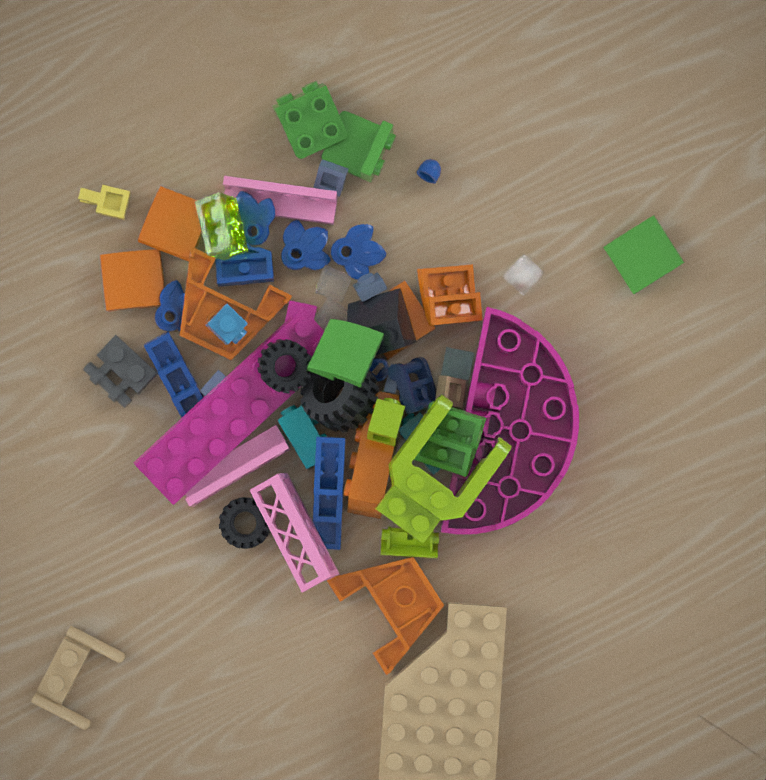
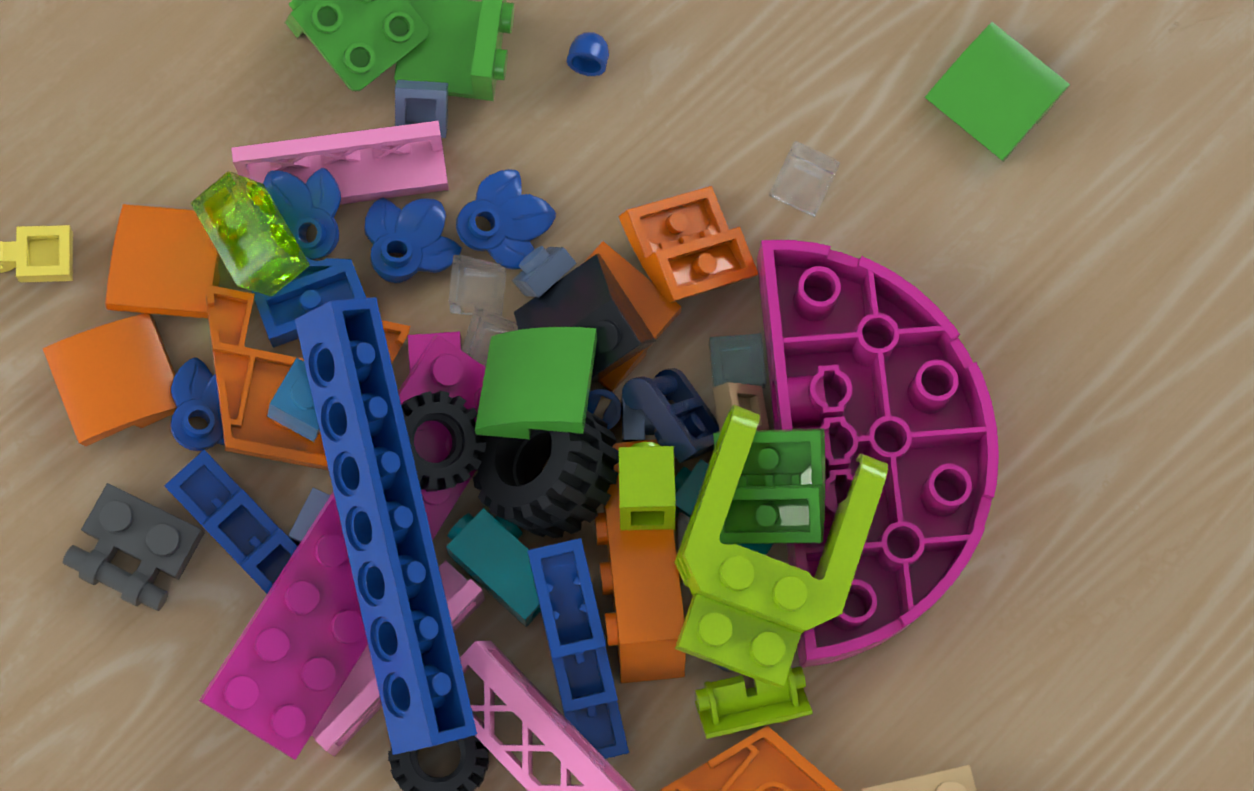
camera: 25 degrees left, 10 degrees down
(247, 404) = (385, 525): none -> blue brick

